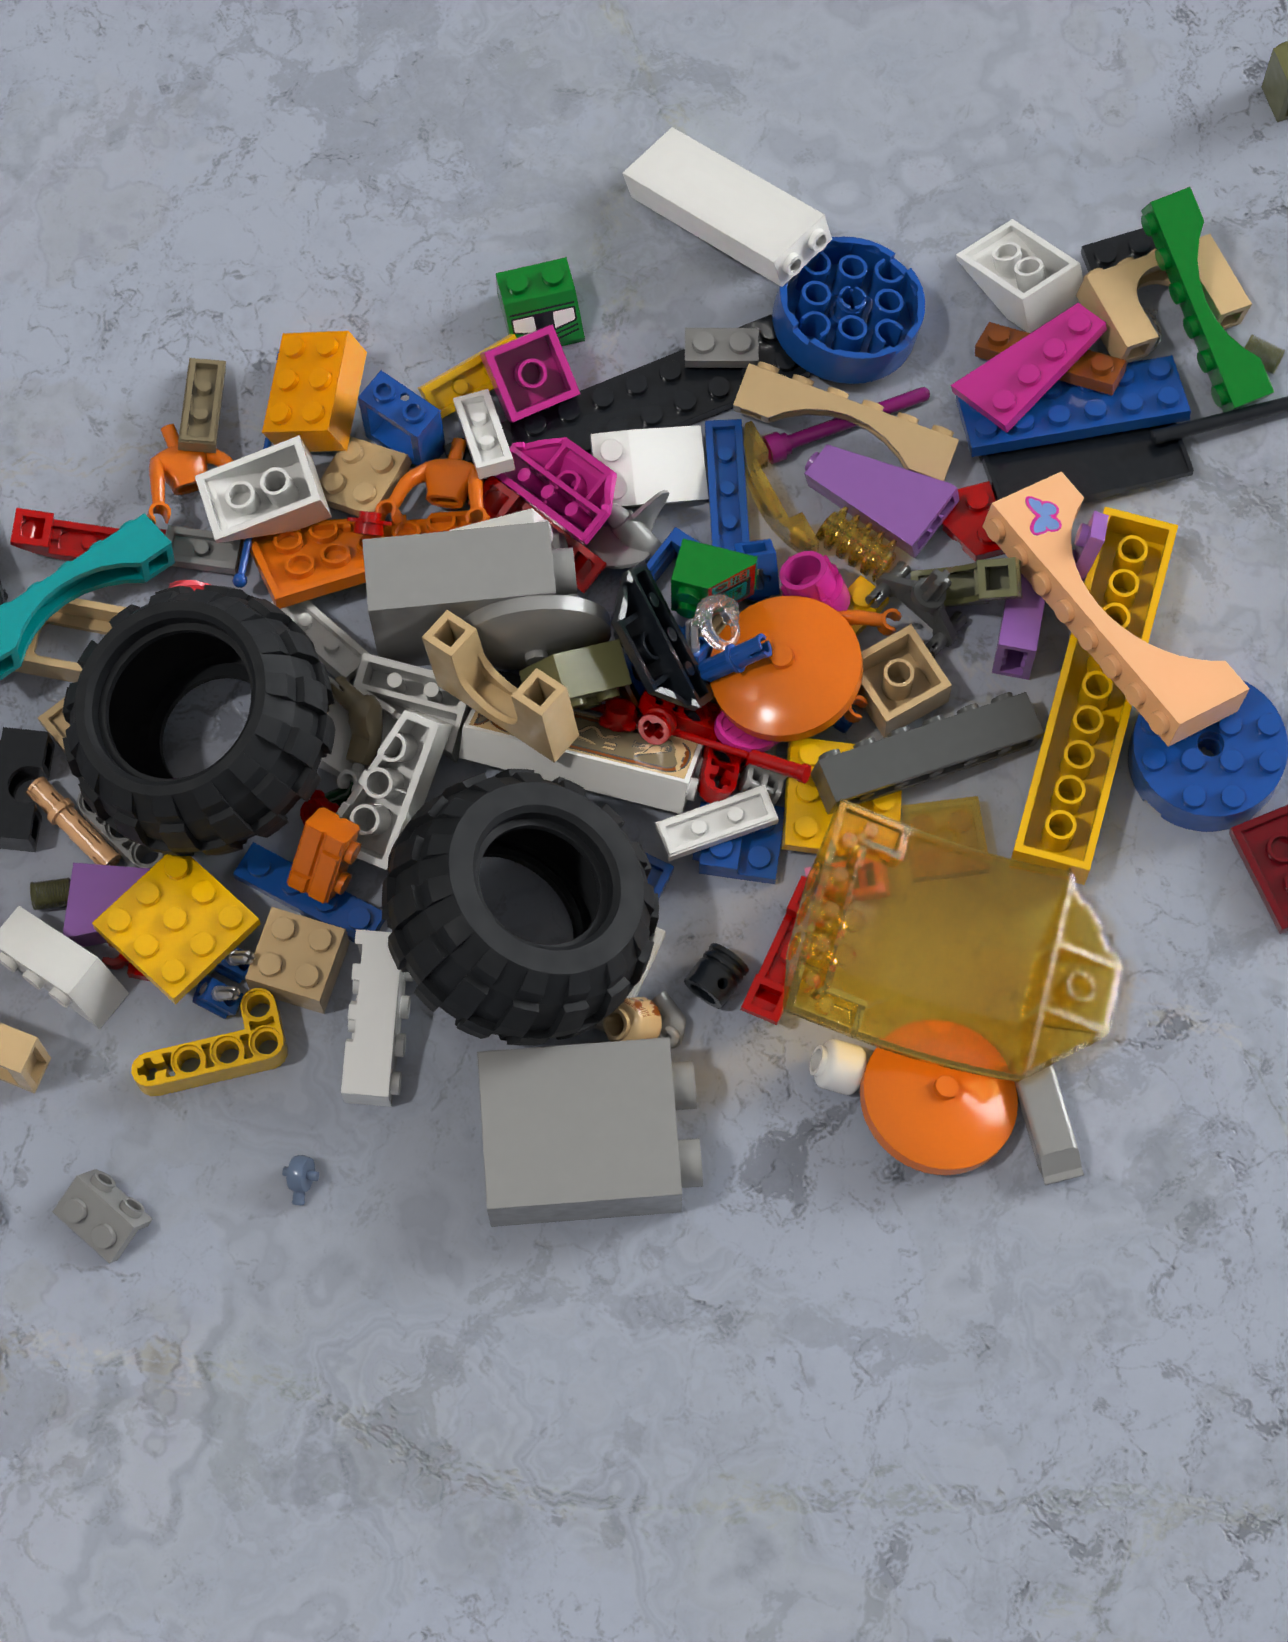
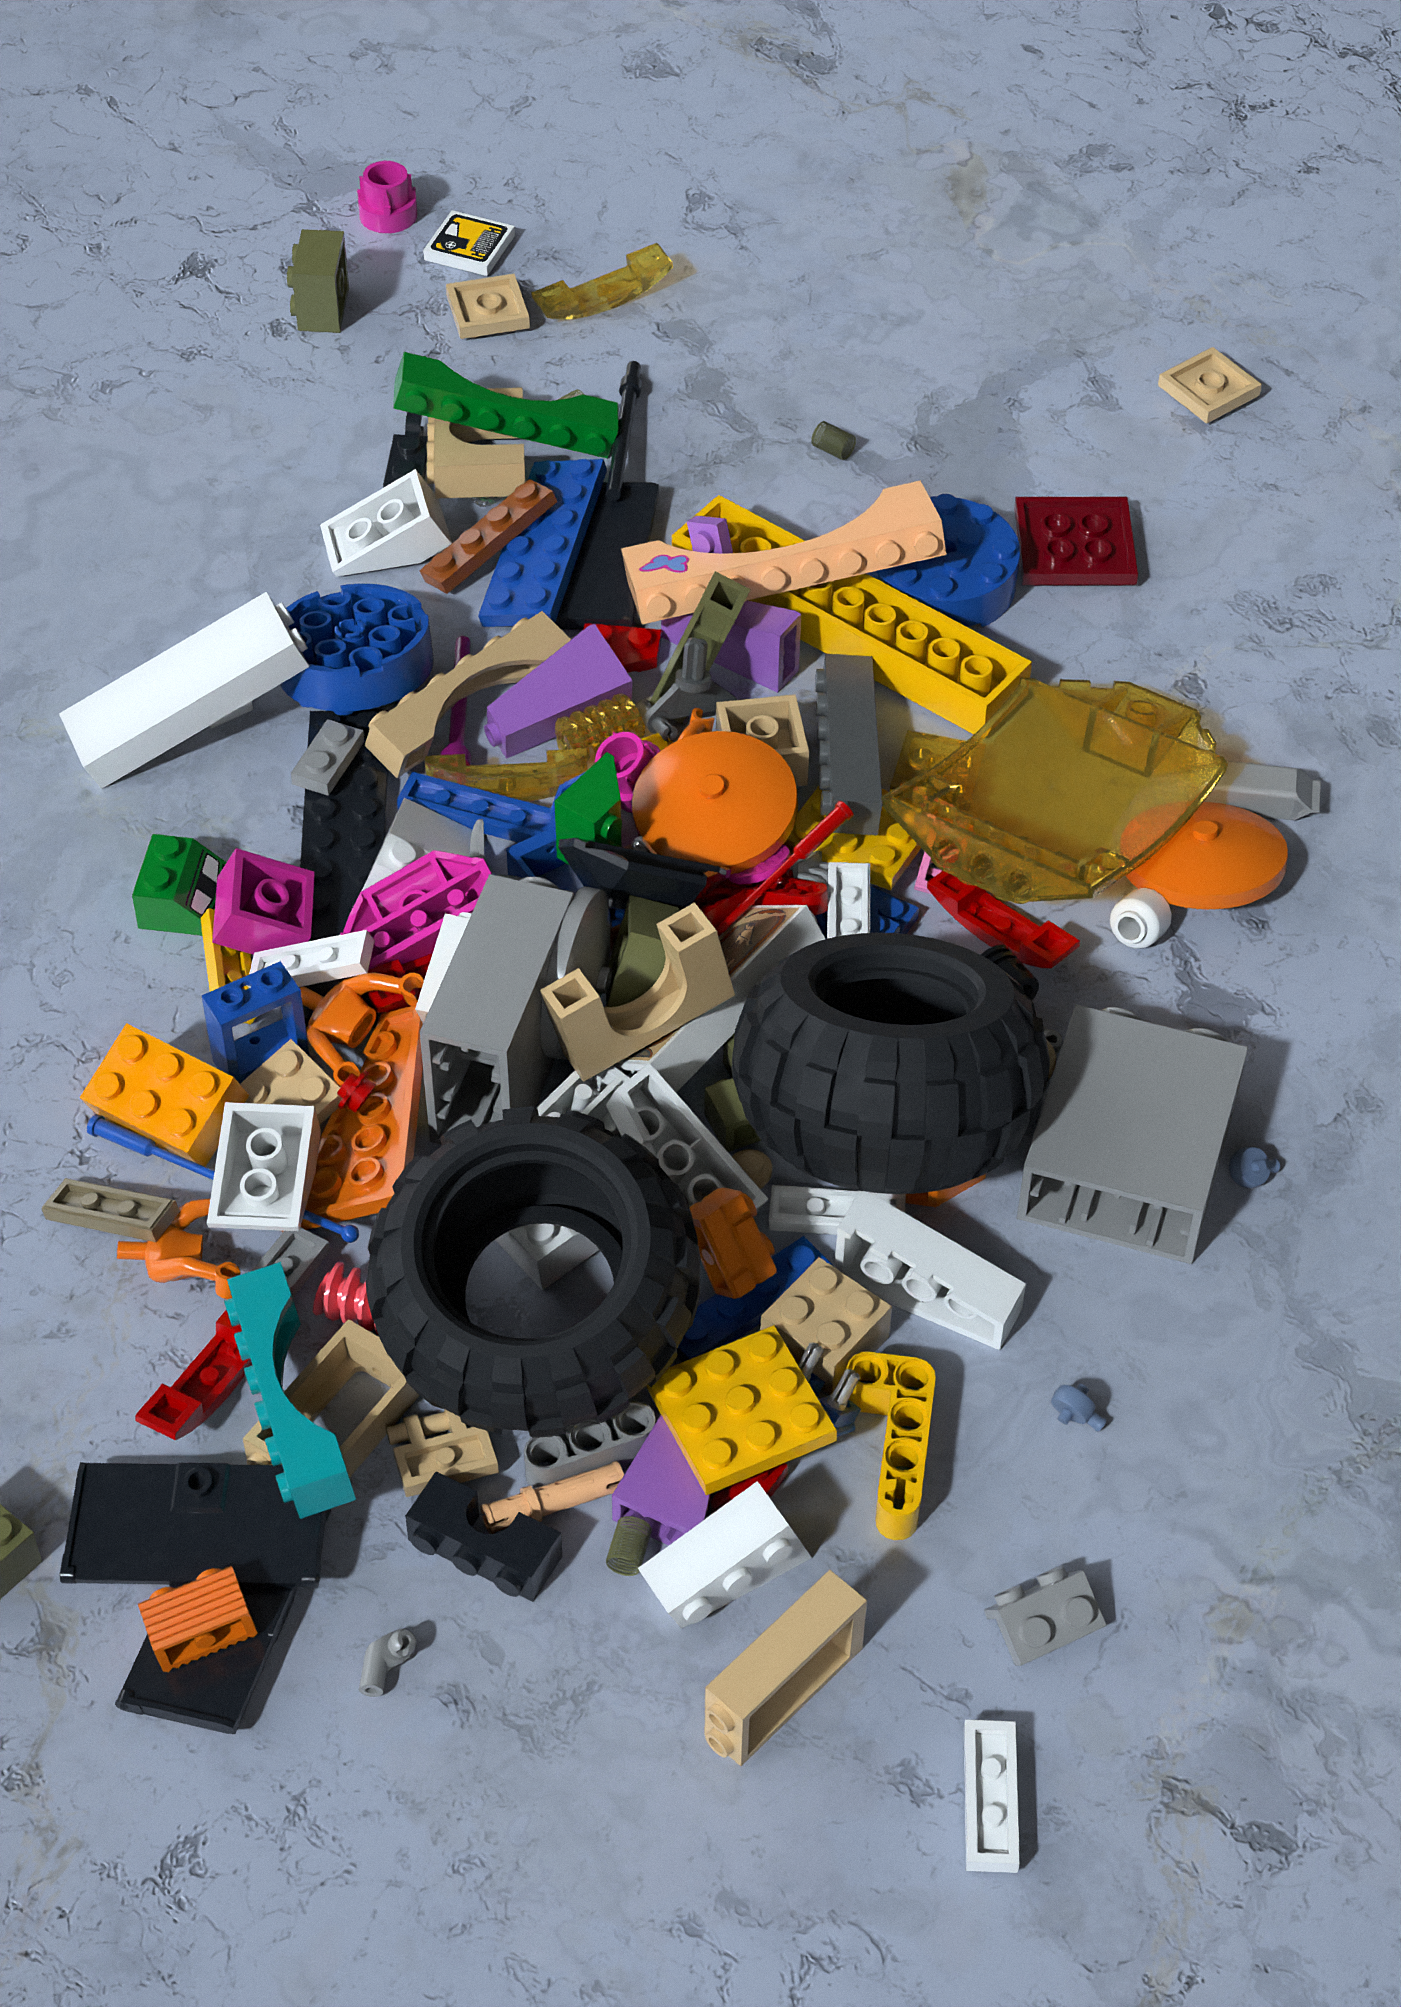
camera: 70 degrees left, 20 degrees down
(601, 1244) = (1251, 1167): none -> sand blue piece
(652, 716) = (736, 920): red bush -> none
(729, 612) = (643, 825): clear piece -> none
(735, 658) = (694, 820): blue axle -> none
(1025, 371) = (499, 543): dark pink wing -> none

